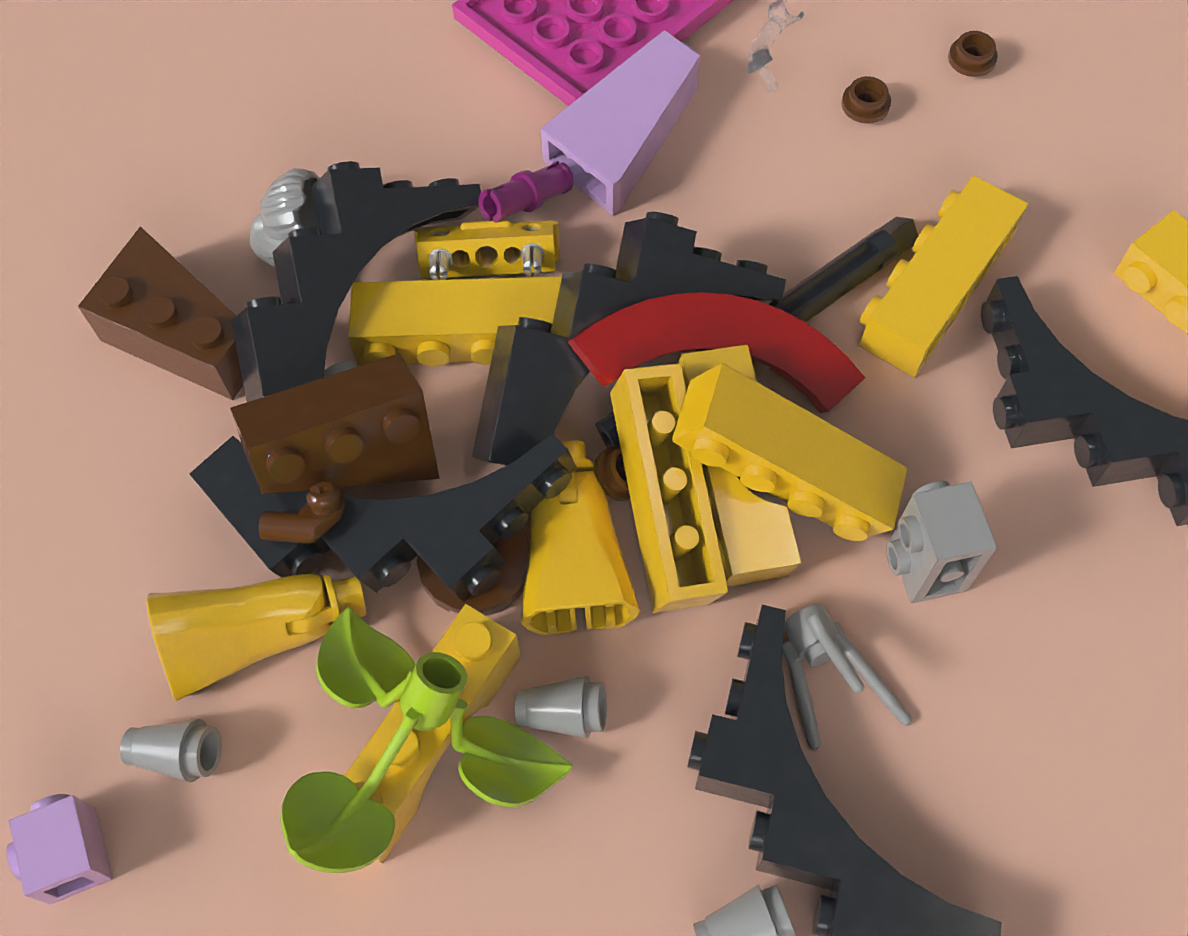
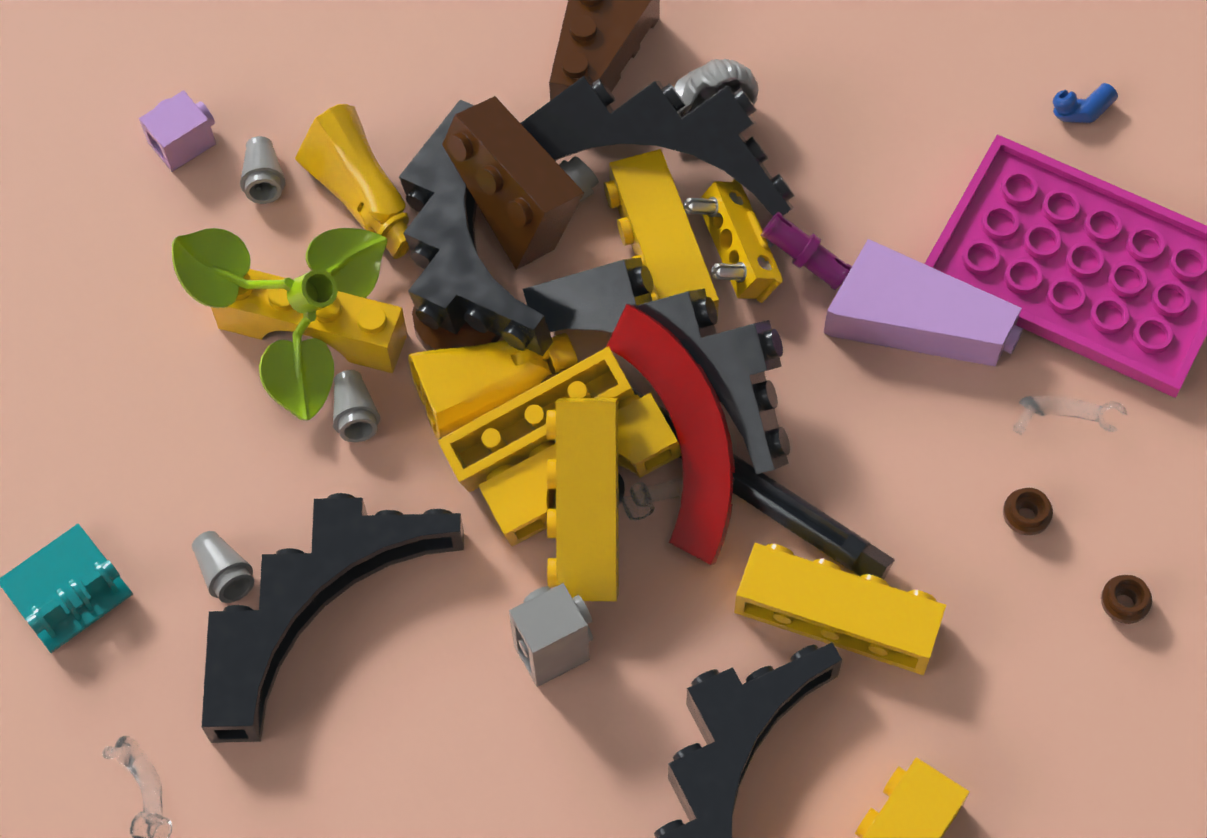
camera: 75 degrees right, 0 degrees up
(321, 513) = (434, 185): reddish brown arm -> none
(820, 640) = (452, 571): light grey plant -> none

